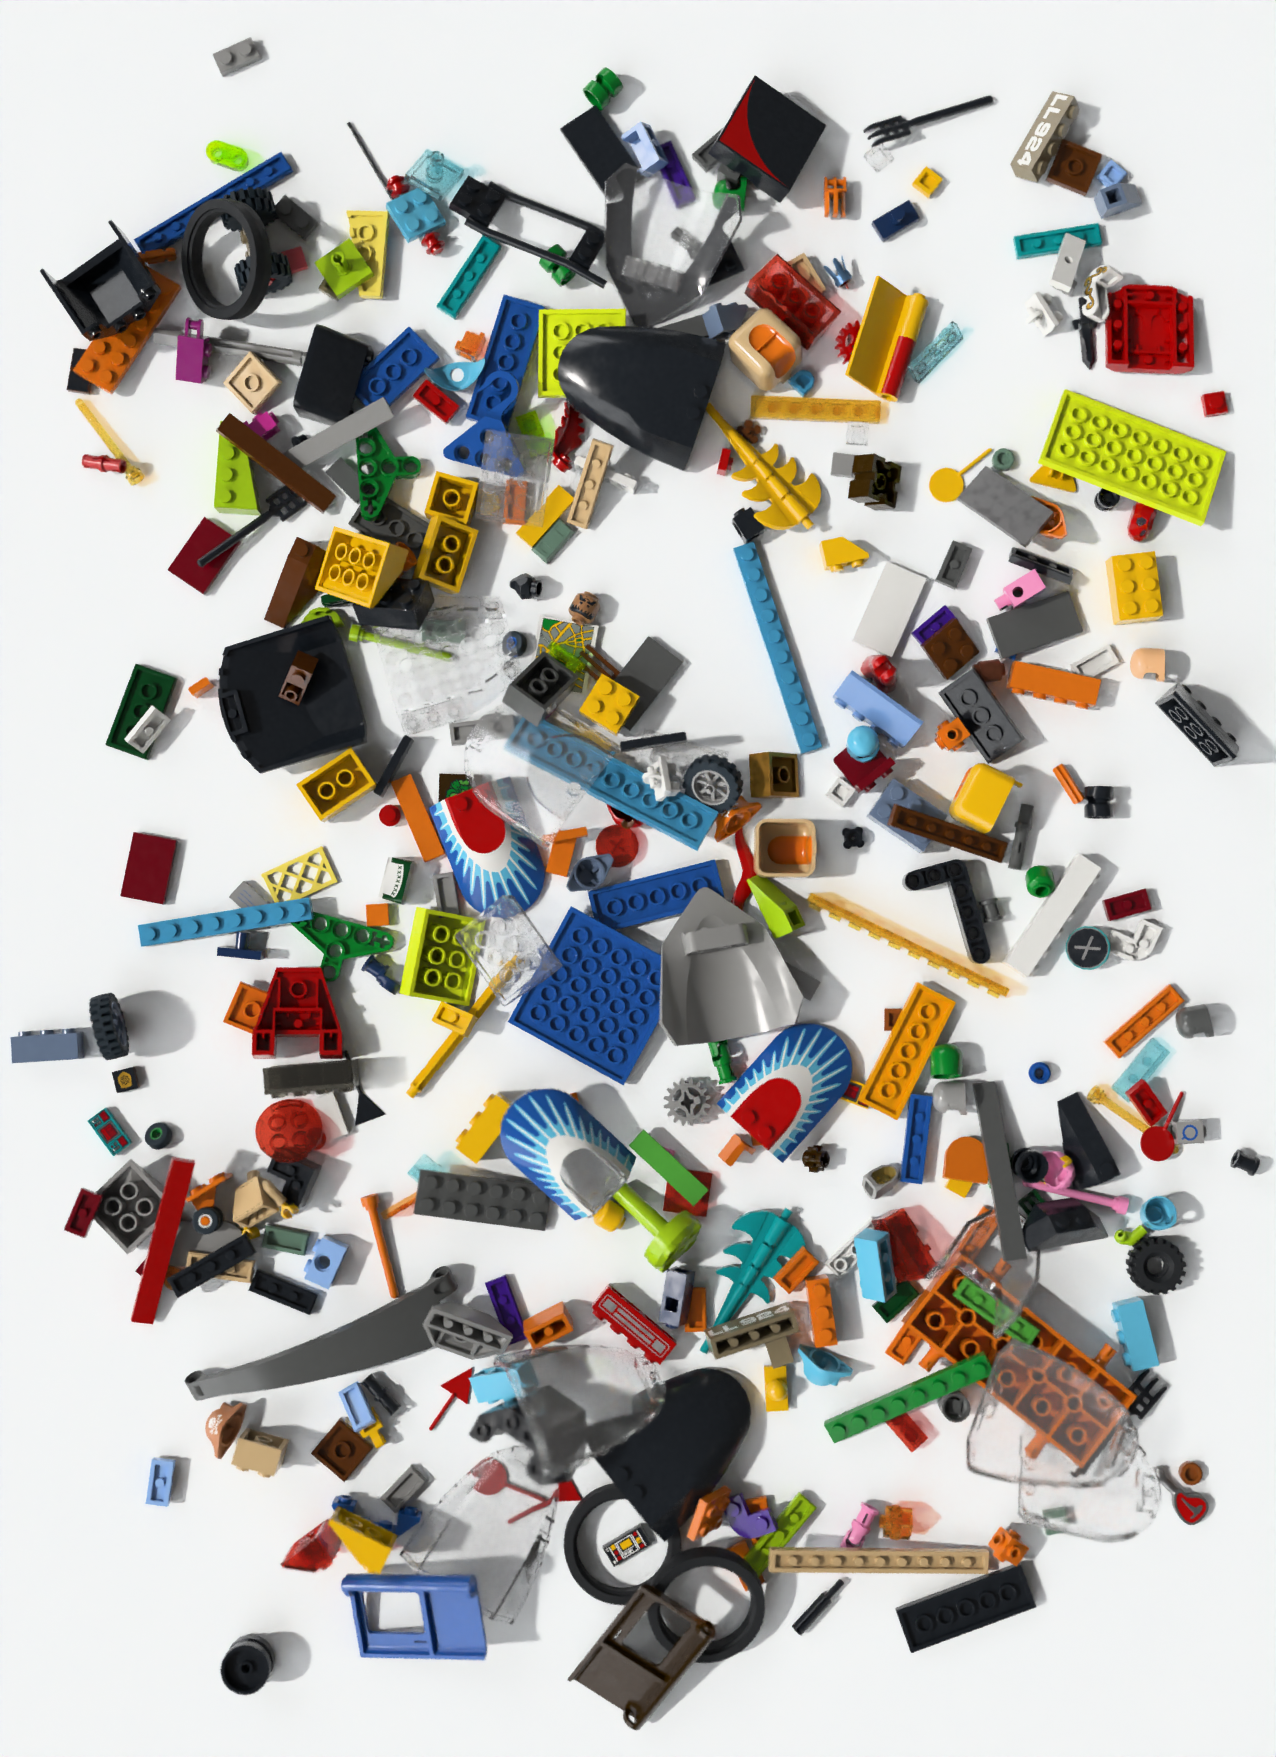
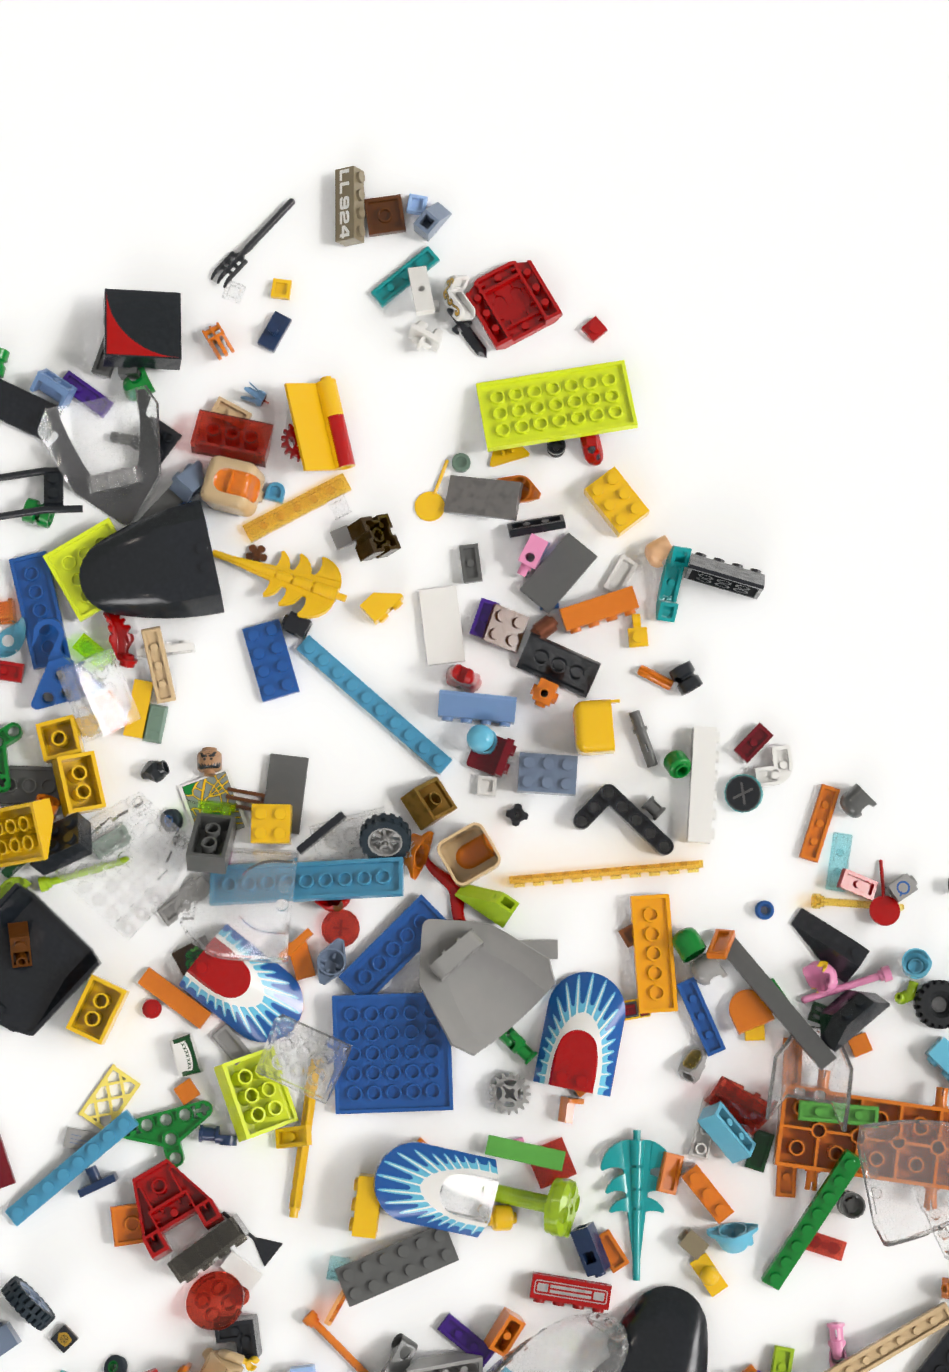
camera: 25 degrees left, 5 degrees down
(393, 766) = (132, 956): black tile -> none
(659, 778) = (341, 857): white hips -> none
(701, 545) = (271, 660): none -> blue plate
(725, 462) = (252, 587): red plate -> none
(751, 1330) = (662, 1240): dark tan brick -> none
(815, 1158) = (633, 1078): dark brown gear -> none
(896, 1522) = (861, 1322): clear orange brick -> none
(935, 352) = (362, 412): clear light blue tile -> none
(947, 833) = (585, 770): reddish brown tile -> none
(978, 1081) = (720, 944): none -> orange tile
(1036, 1168) = (797, 990): black helmet -> none
(1054, 1258) = (860, 1044): none -> orange tile
(1076, 732) = (637, 635): none -> yellow plate
(1140, 699) = (670, 583): none -> teal slope

